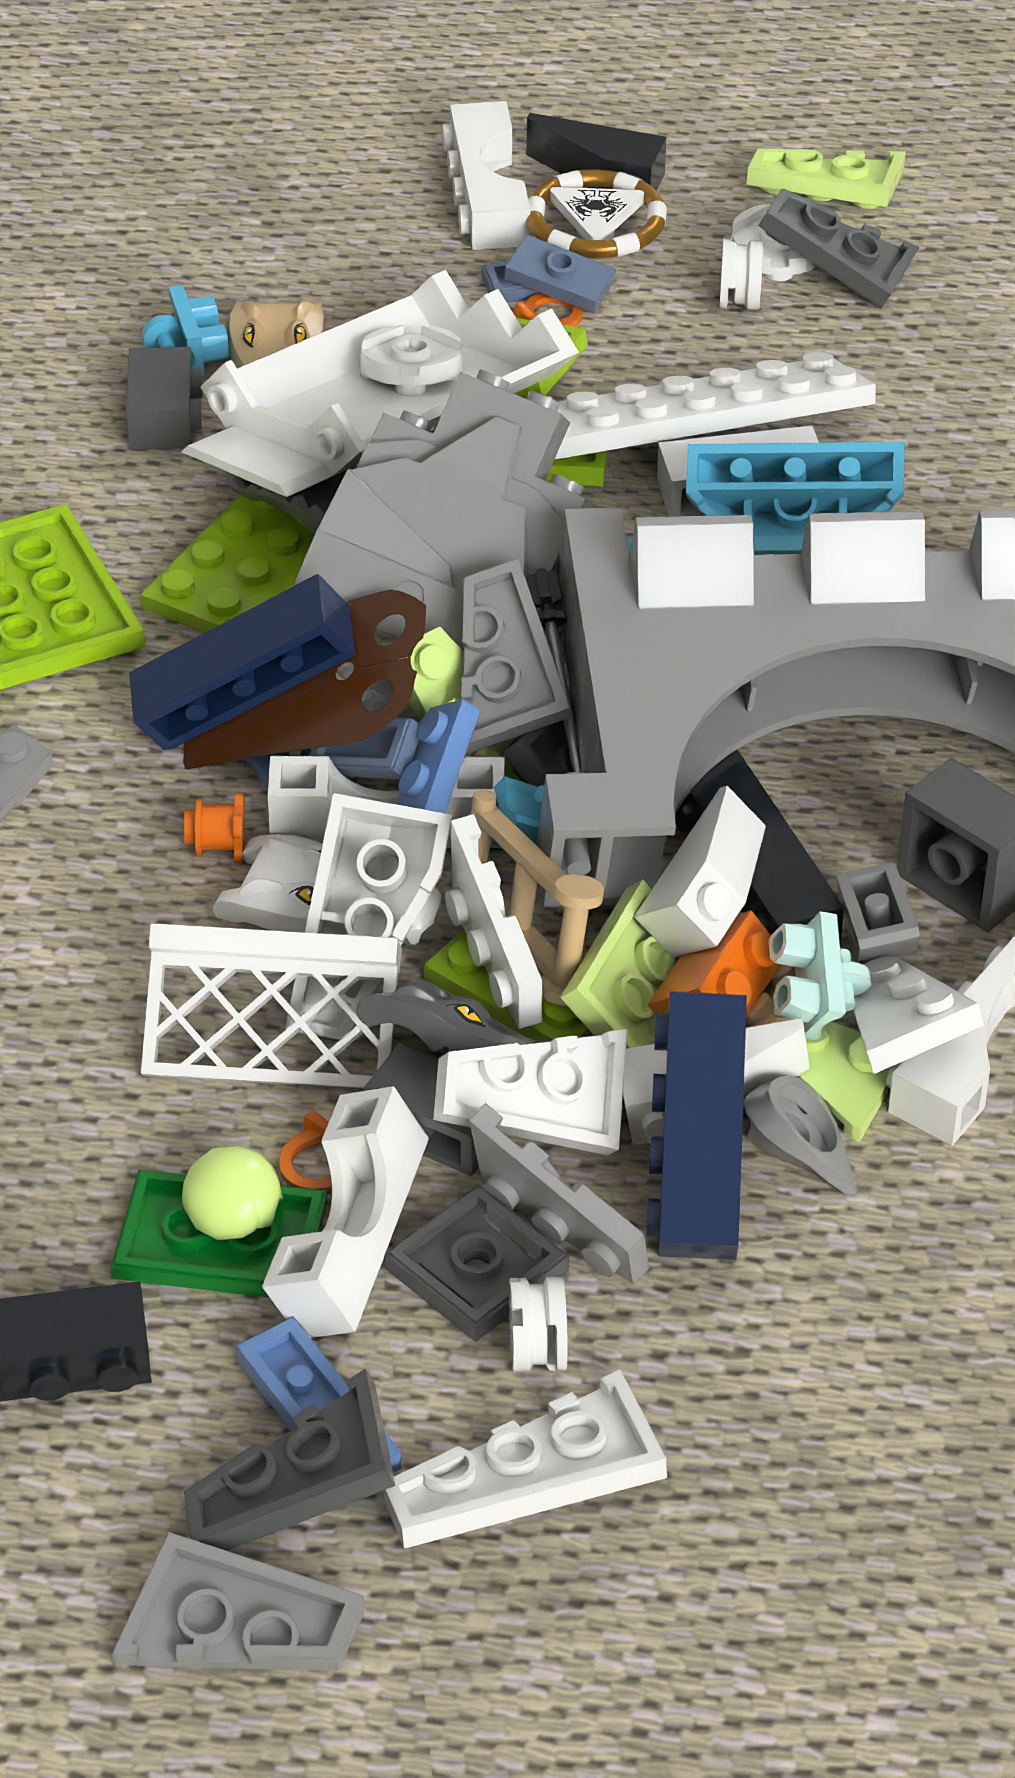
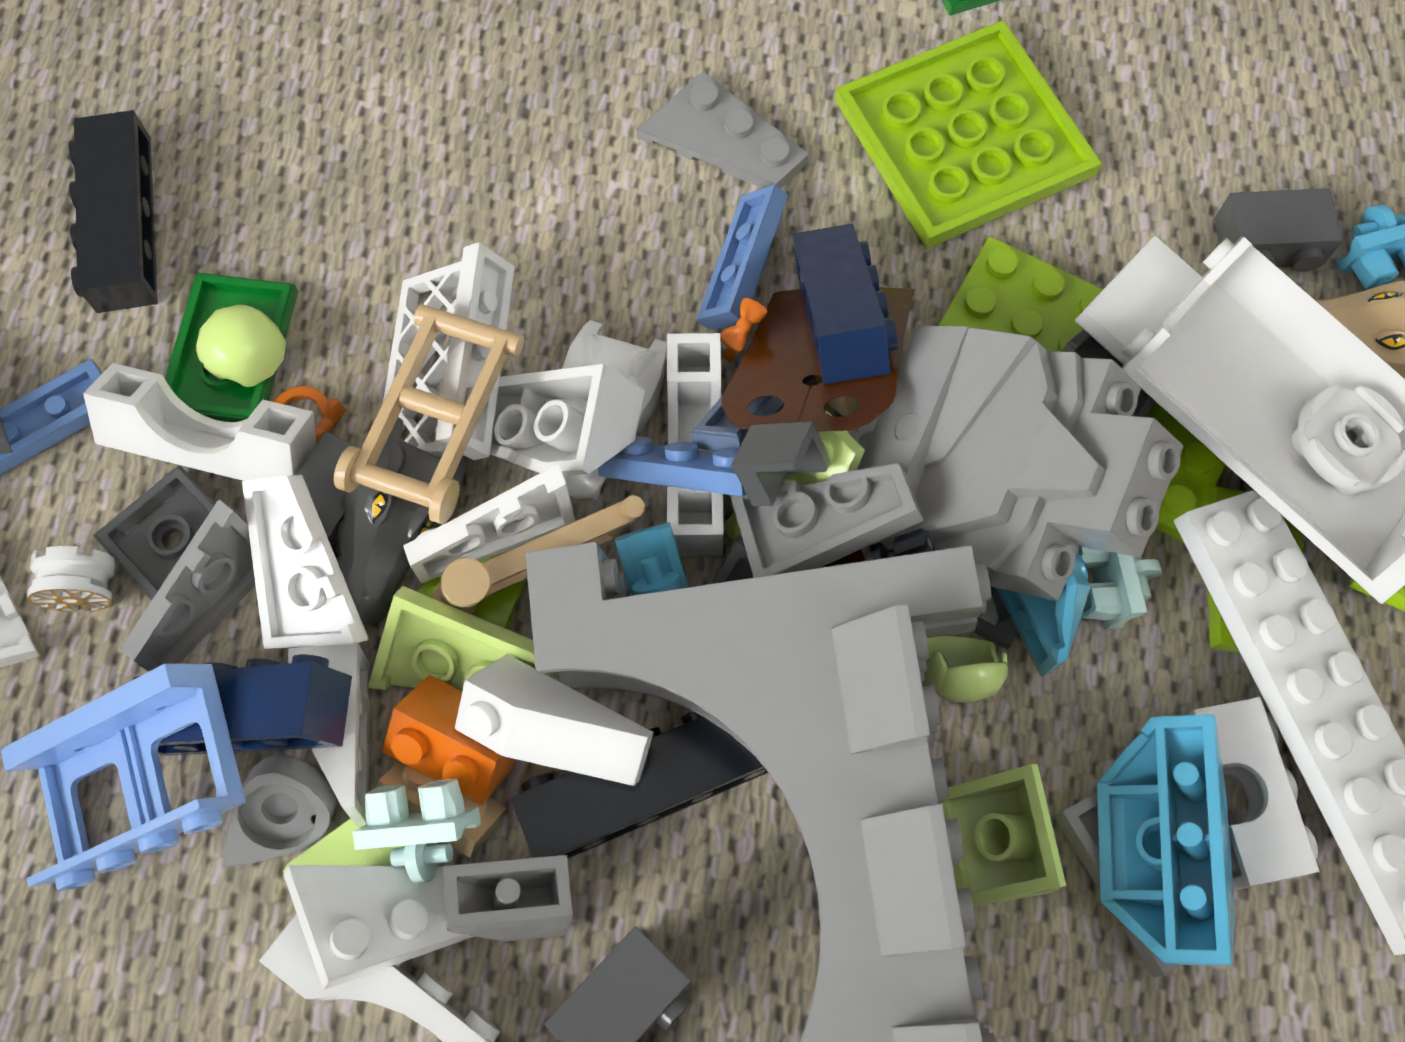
camera: 90 degrees right, 25 degrees up
(145, 772) = (742, 256): none -> medium blue plate
(216, 827) = (677, 310): orange brick -> none
(238, 741) = (736, 336): none -> orange piece
(432, 1003) = (442, 493): none -> tan piece
(444, 667) = (772, 453): none -> dark grey panel
(739, 1218) = (126, 732): none -> light blue window

